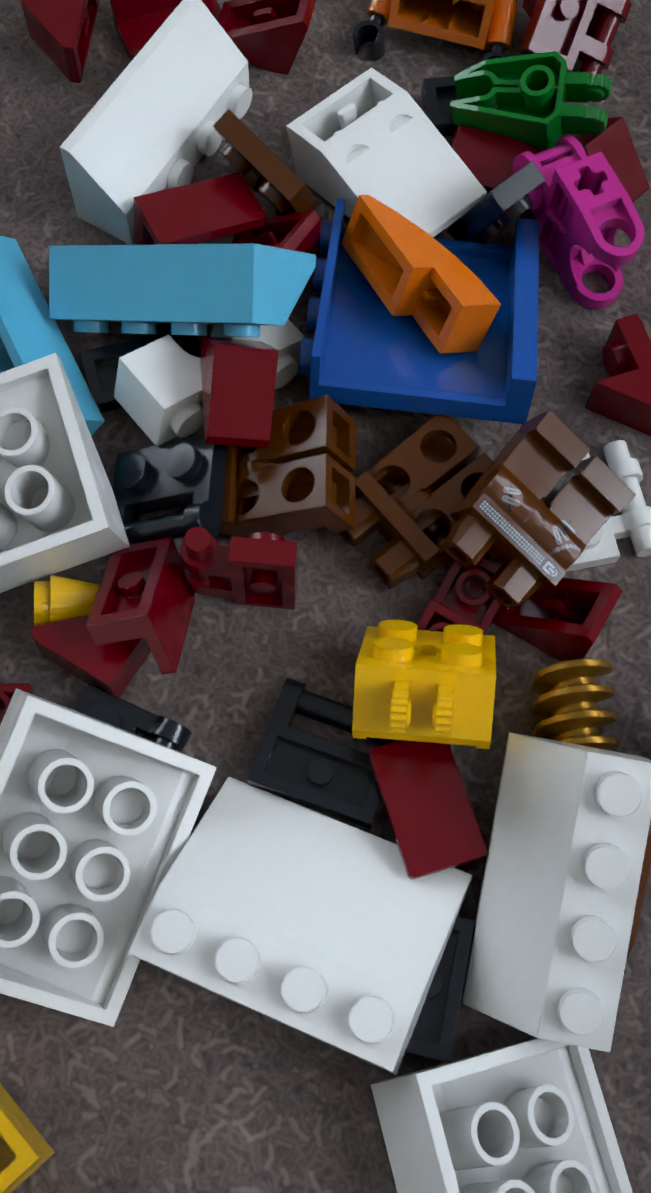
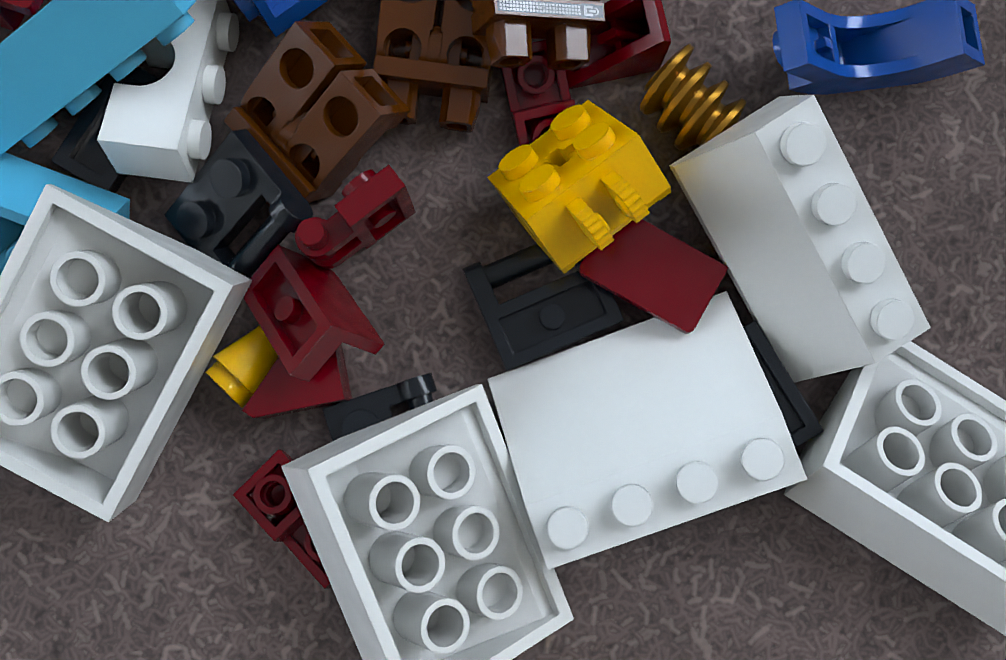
camera: 40 degrees left, 15 degrees up
(237, 391) = (218, 79): dark red slope -> none

